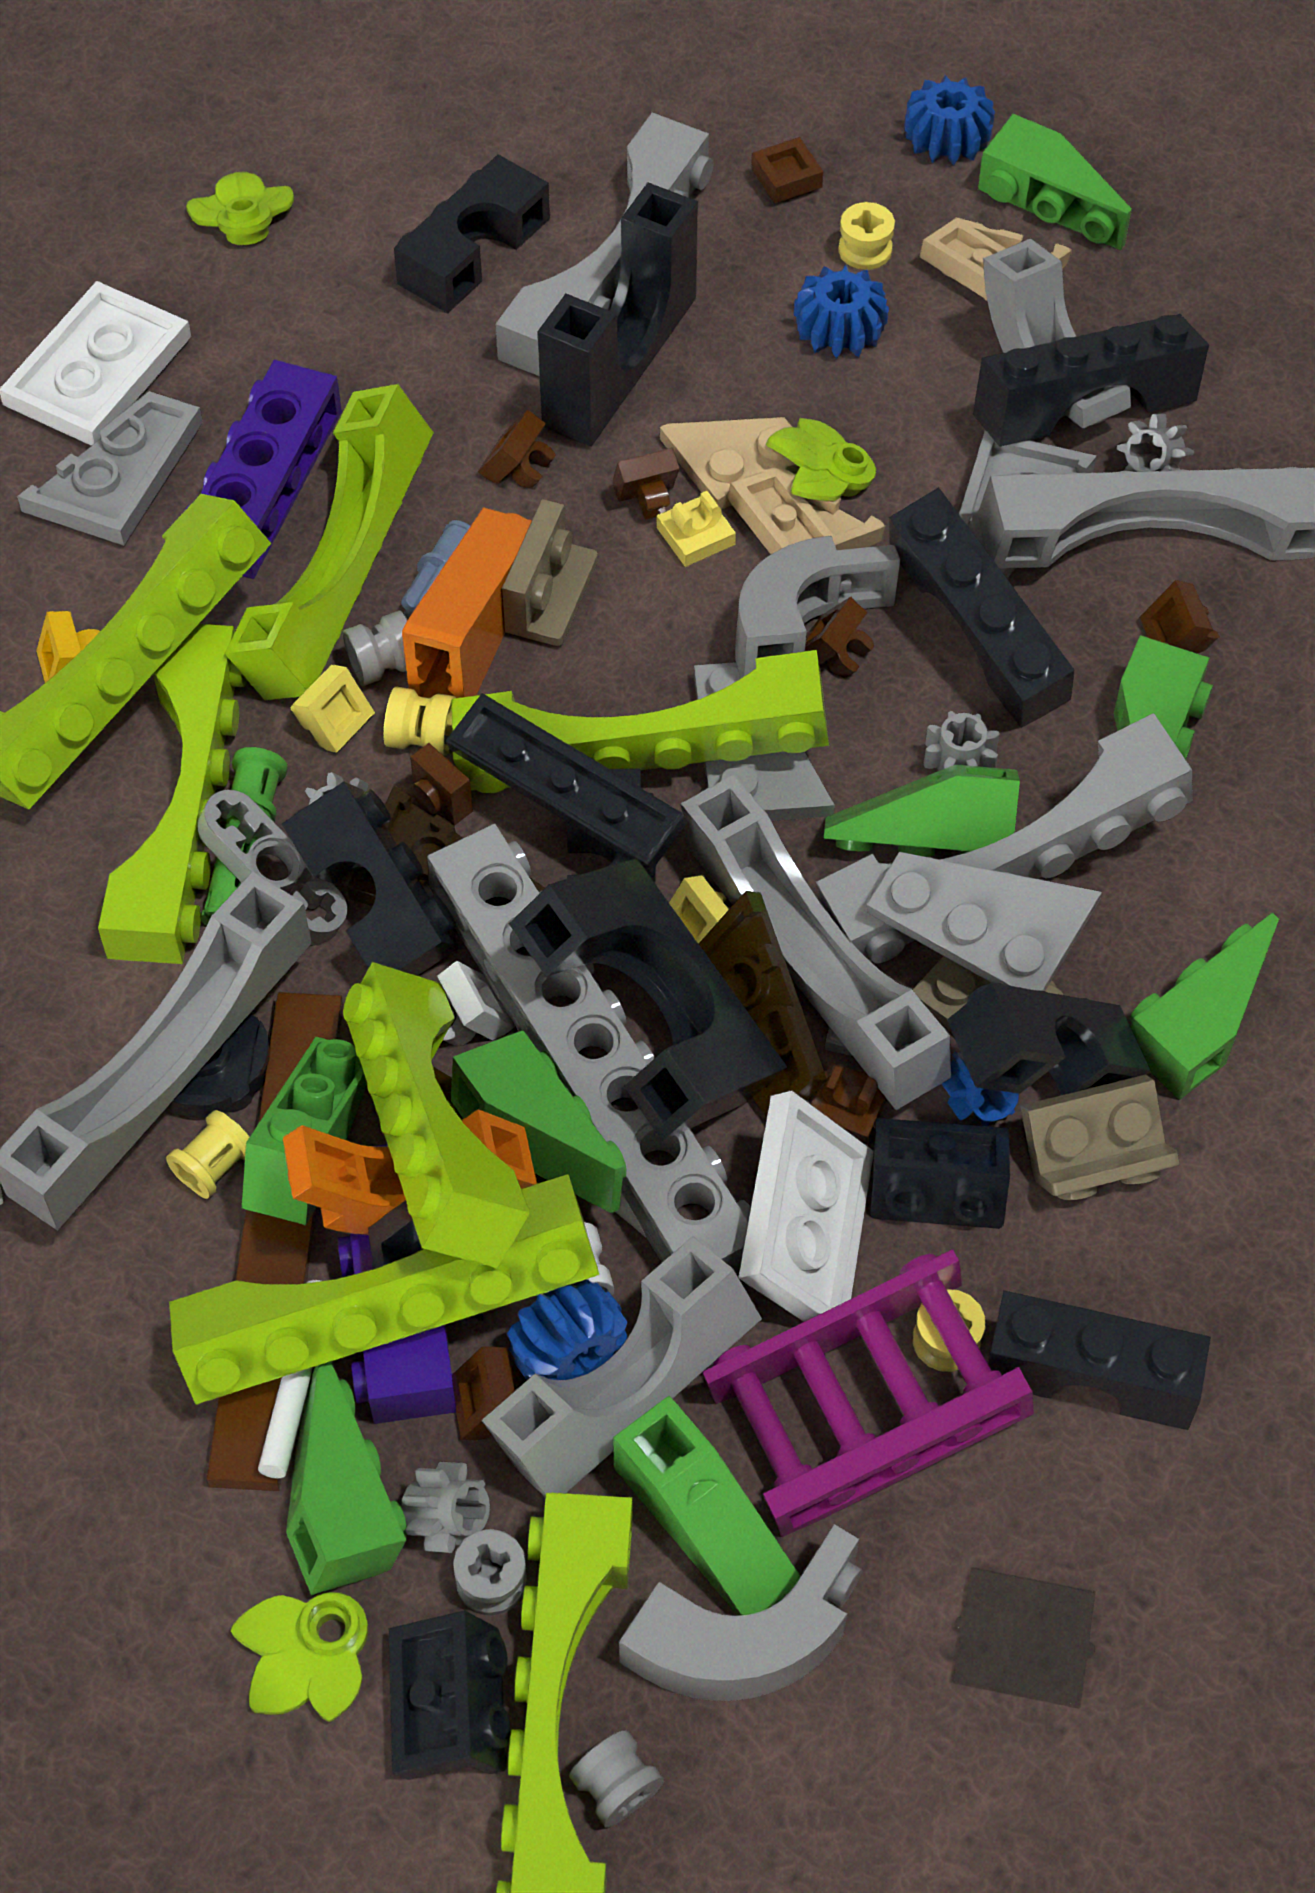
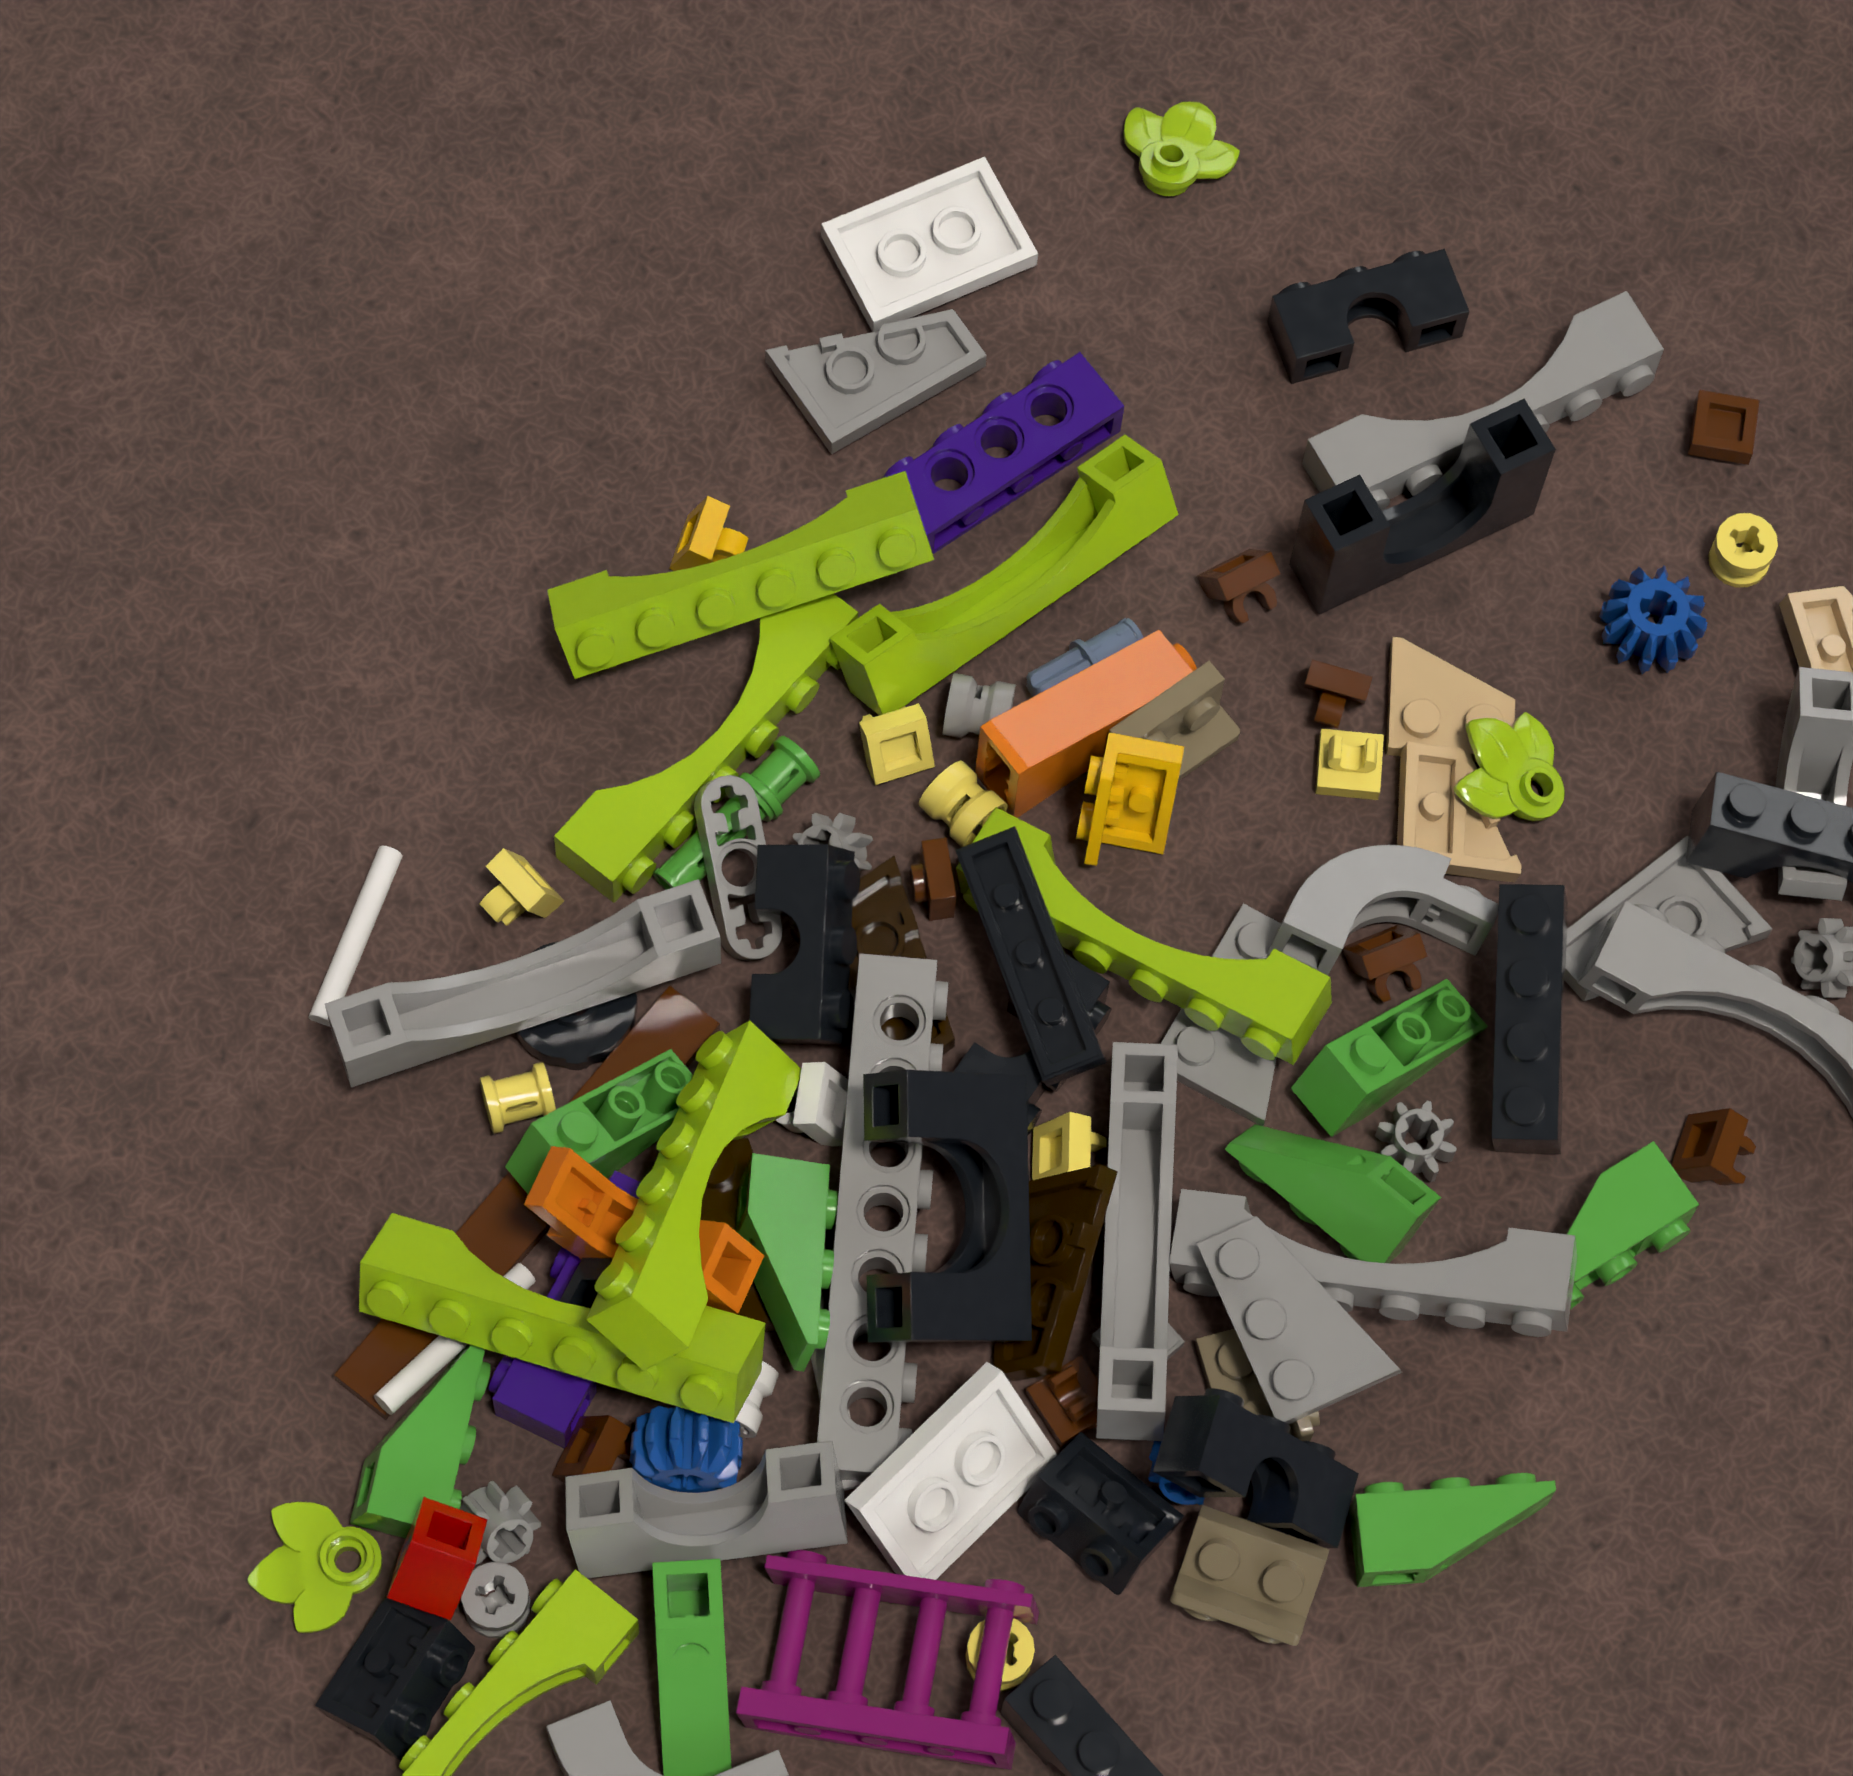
camera: 30 degrees right, 10 degrees up
(93, 994) = (519, 889): none -> light yellow tile
(419, 1561) = (437, 1558): none -> red brick
(554, 629) = (1133, 795): none -> yellow bracket
(888, 707) = (1385, 1056): none -> bright green slope

